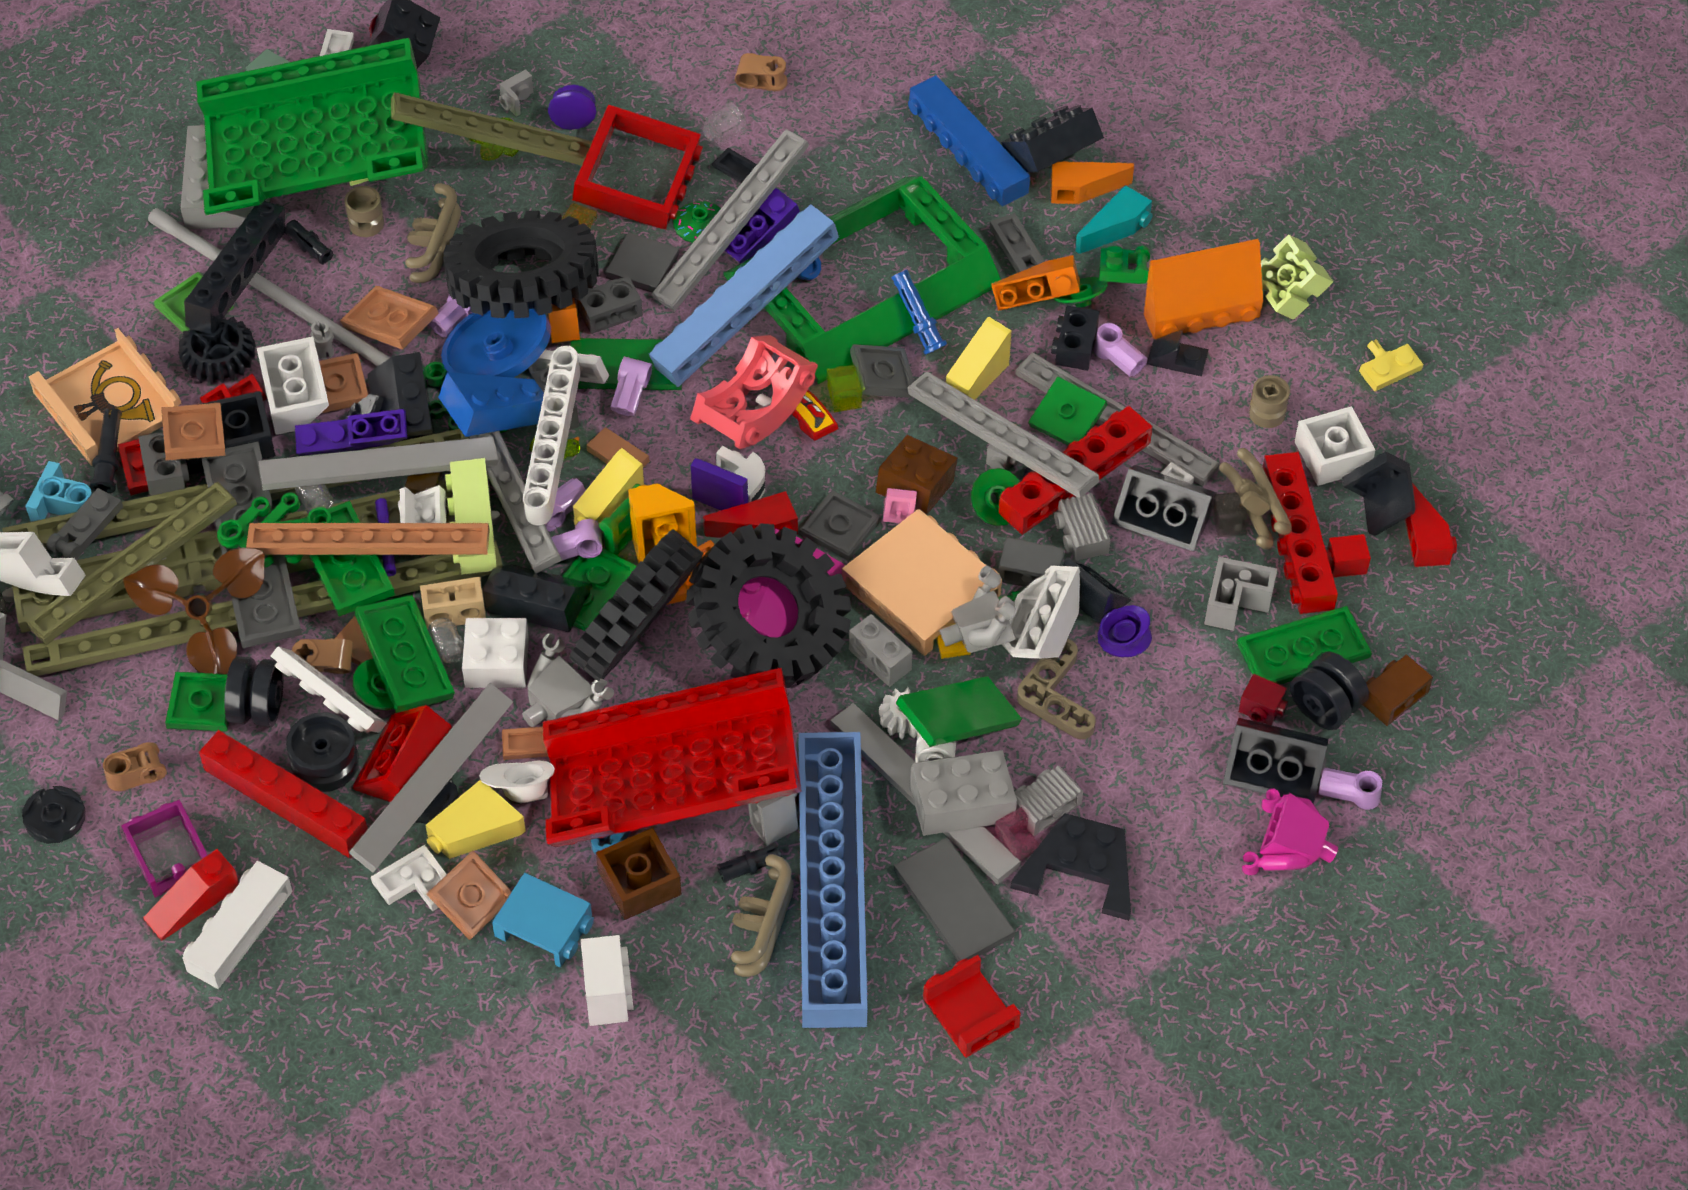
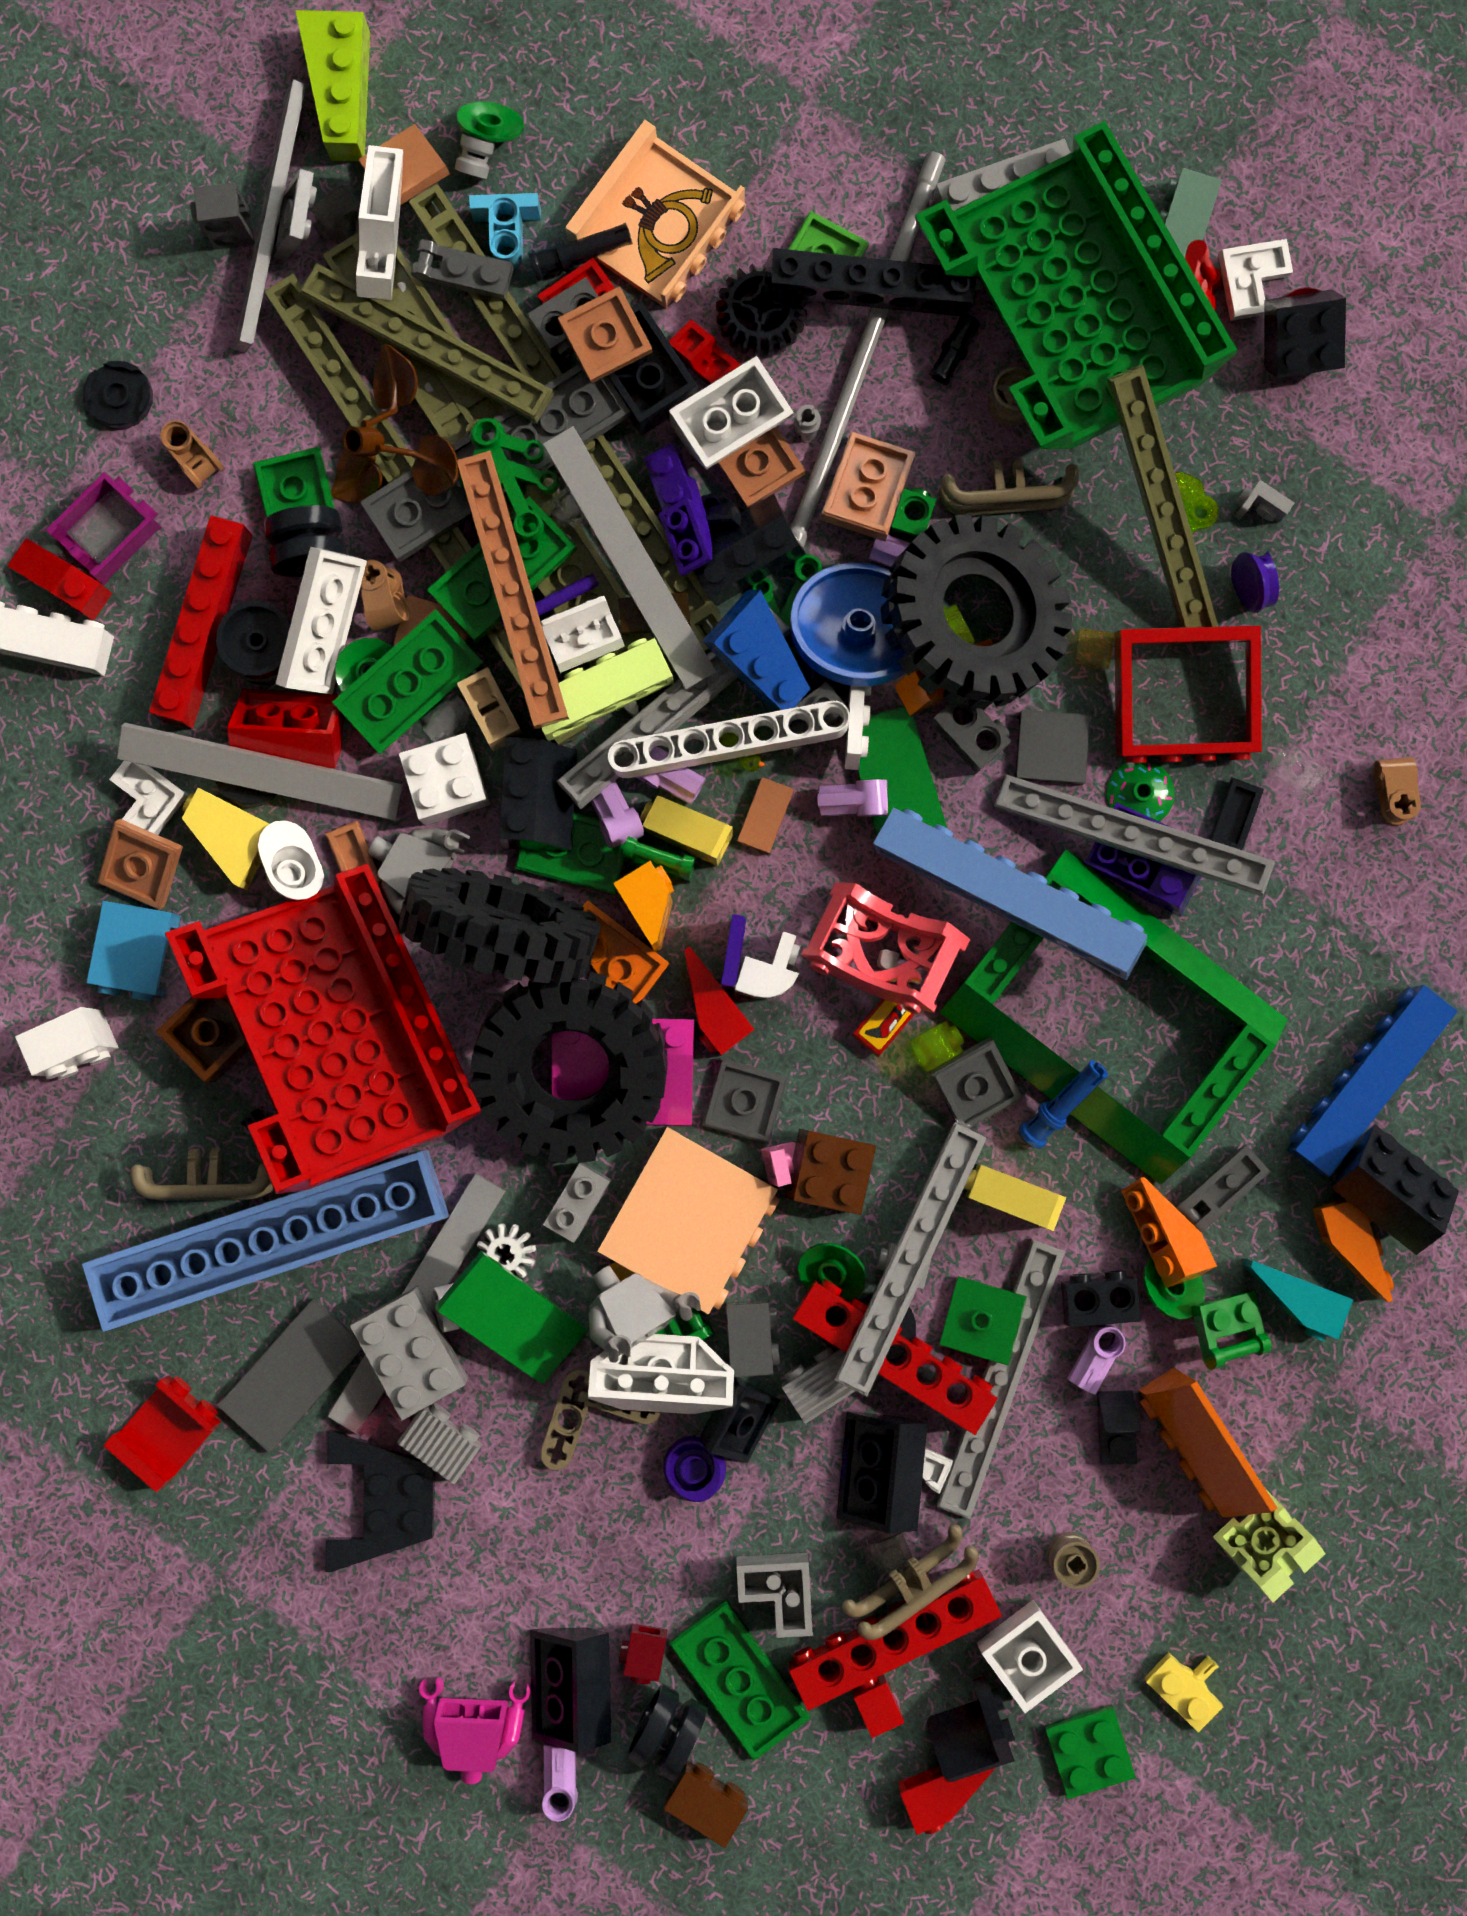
camera: 75 degrees right, 30 degrees up
(427, 291) = (912, 499): none -> green brick
(1422, 436) = (1089, 1751): none -> green plate

